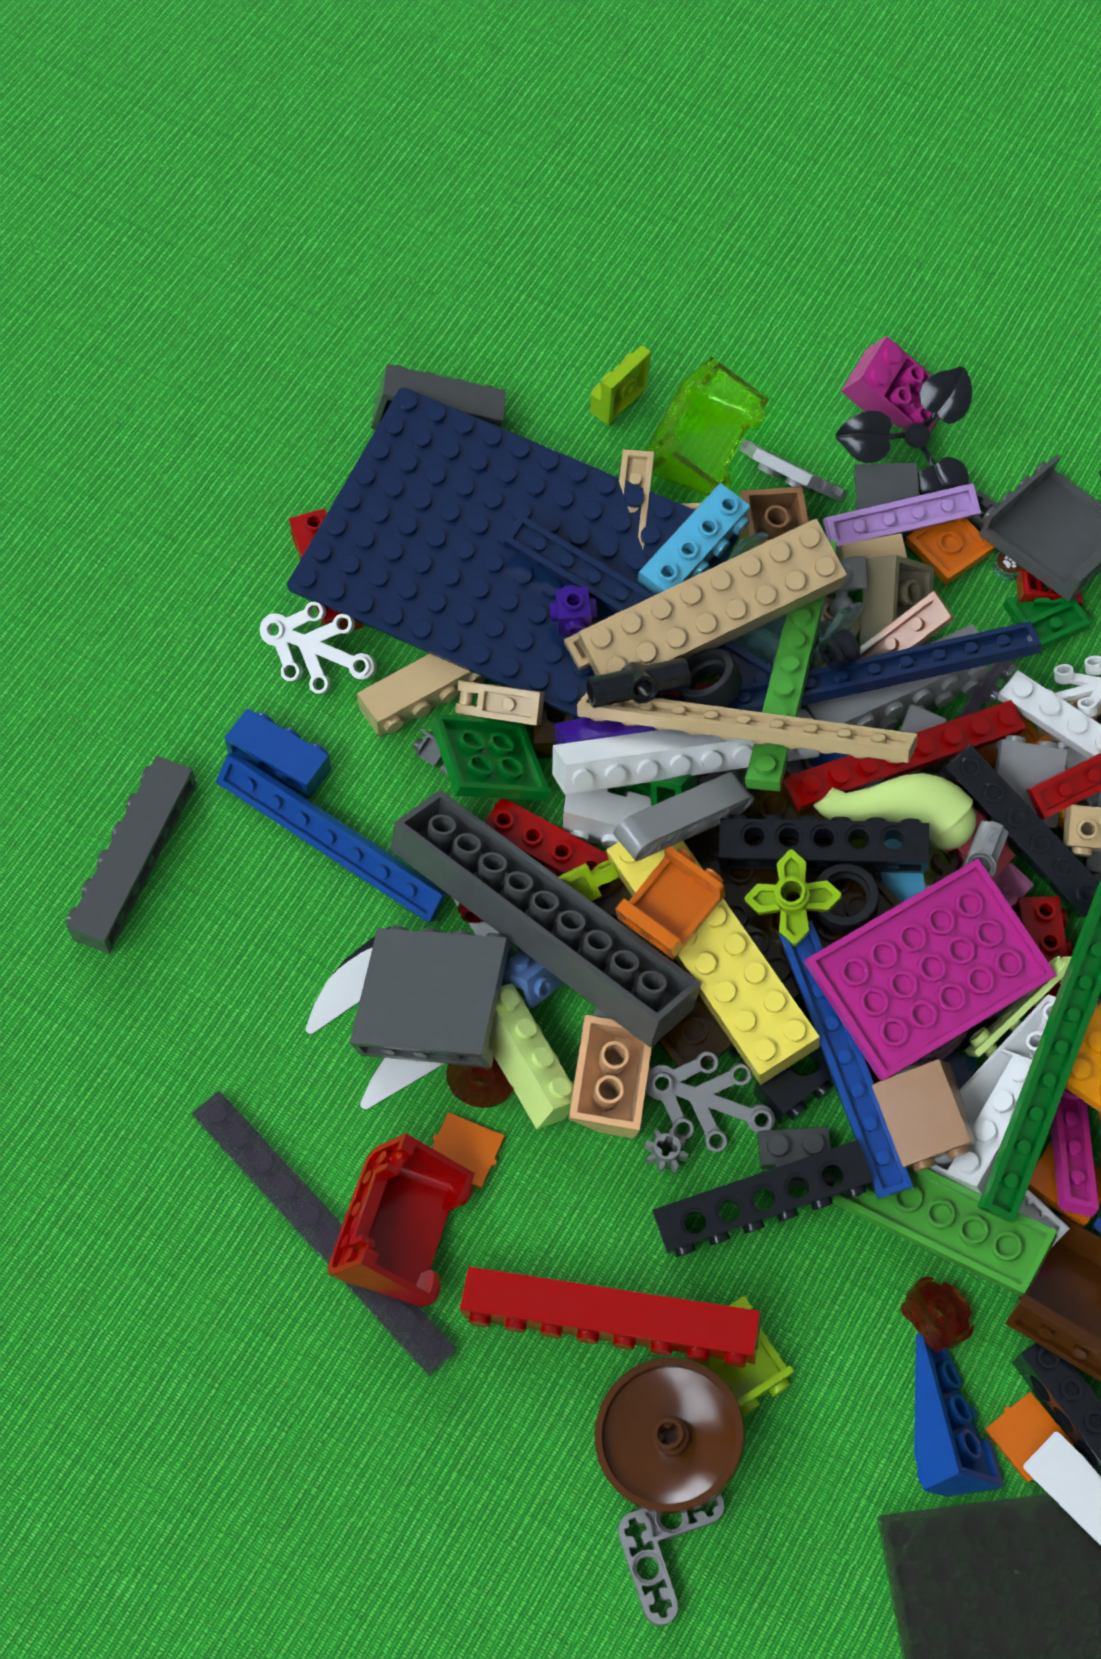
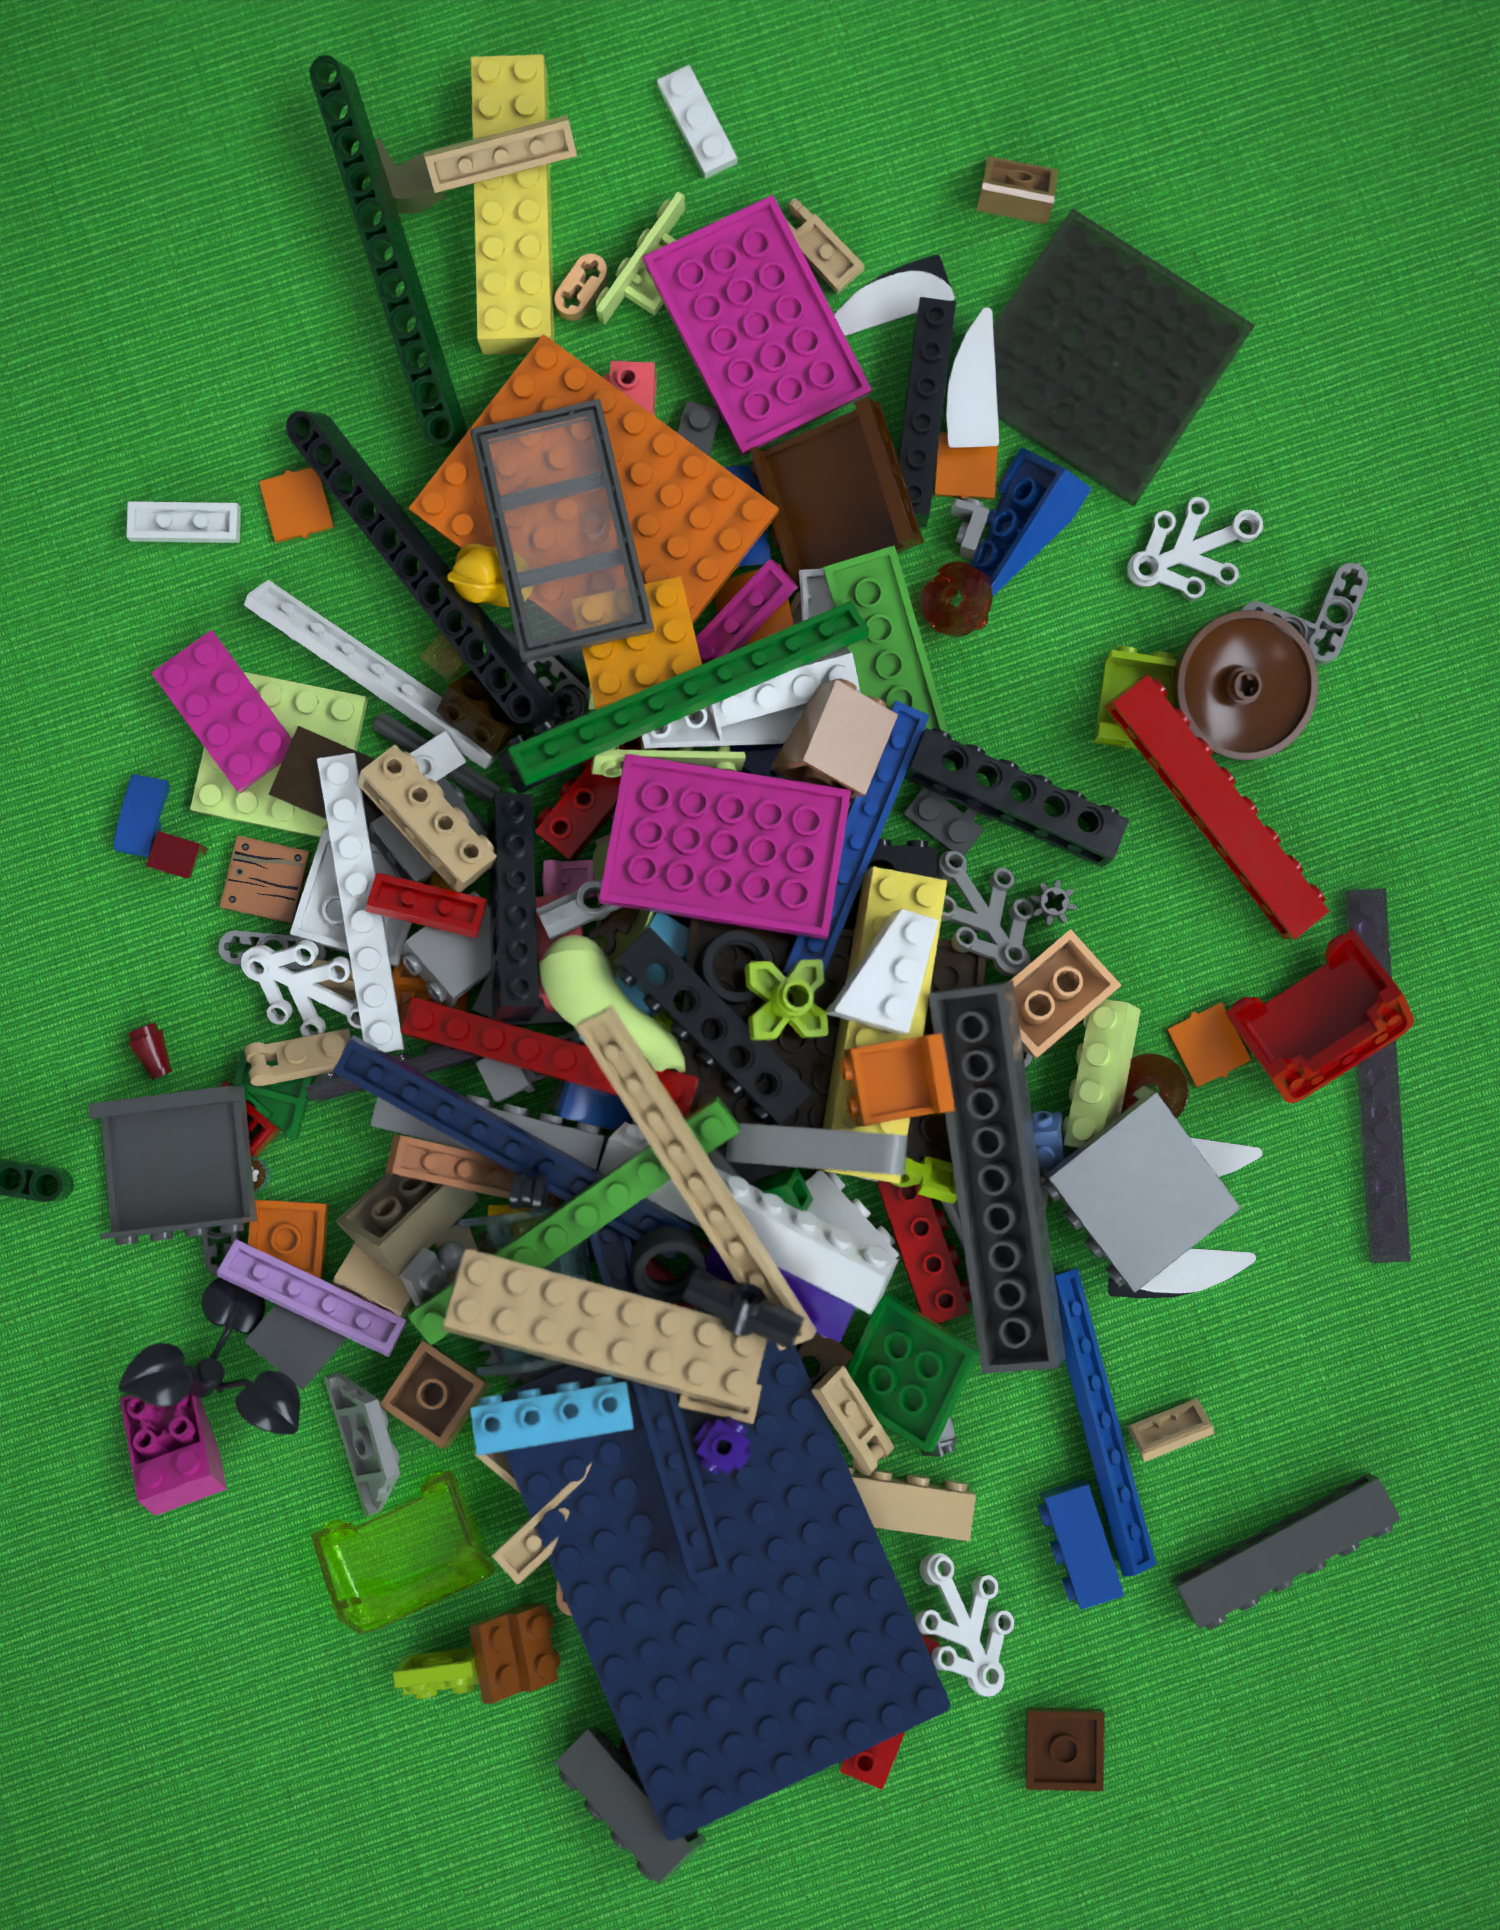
camera: 135 degrees left, 20 degrees up
(186, 630) = (1064, 1749): none -> reddish brown plate
(275, 868) = (1170, 1429): none -> tan plate
(586, 426) = (514, 1652): none -> dark orange plate
(741, 958) = (889, 976): none -> white wedge
(805, 1517) = (1189, 552): none -> white plant
(977, 1382) = (969, 533): none -> light grey bracket
(1055, 644) = (295, 1057): none -> tan plate

